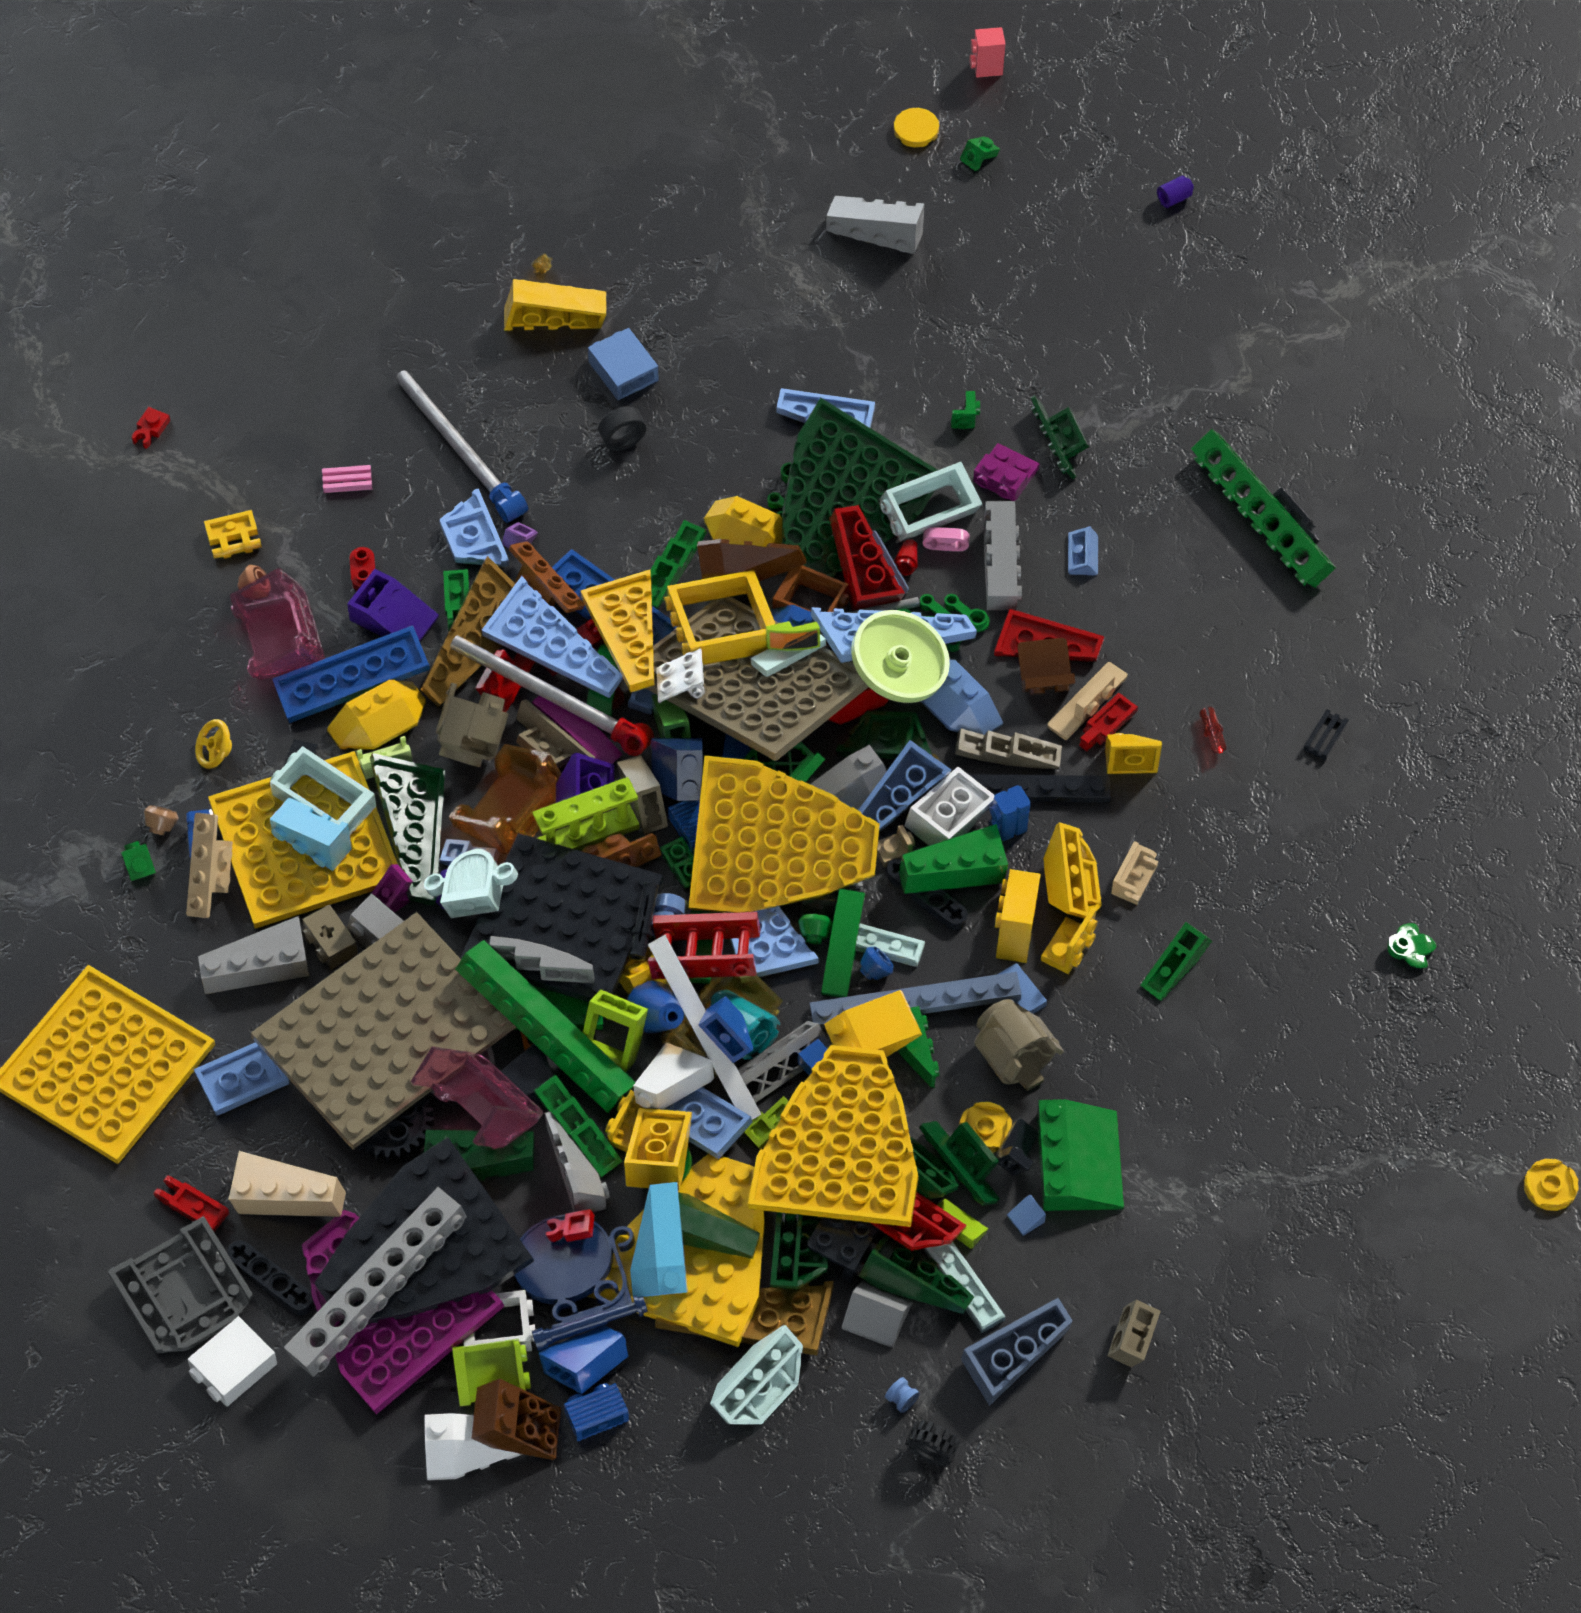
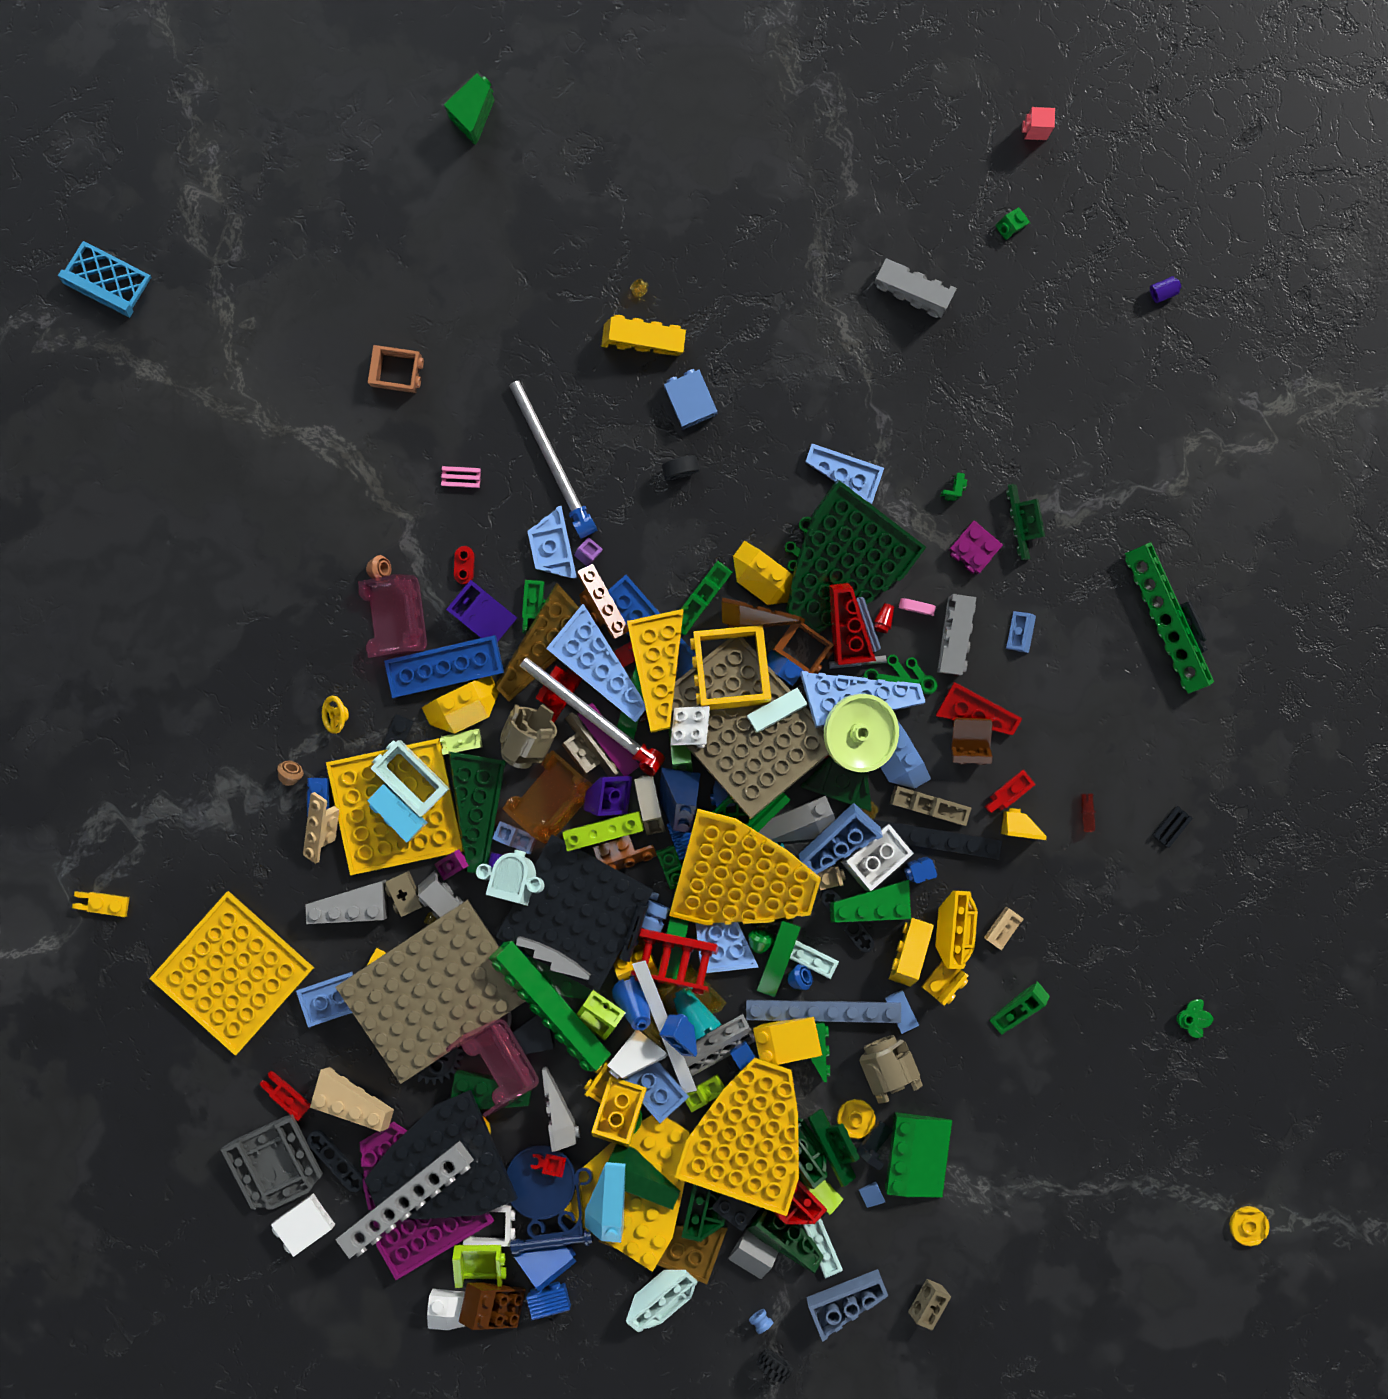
camera: 10 degrees right, 30 degrees up
(137, 861) = (270, 805): green bracket -> none
(150, 424) = (313, 401): red plate -> none
(232, 528) = (366, 513): yellow plate -> none
(251, 361) = (376, 366): none -> nougat window
(313, 113) = (471, 107): none -> green slope
(578, 1125) = (564, 1079): green slope -> none
(789, 638) = (775, 704): slope -> none
(916, 127) = (965, 187): yellow tile -> none
(950, 476) = (938, 579): light aqua piece -> none
(1087, 700) = (995, 774): tan bracket -> none

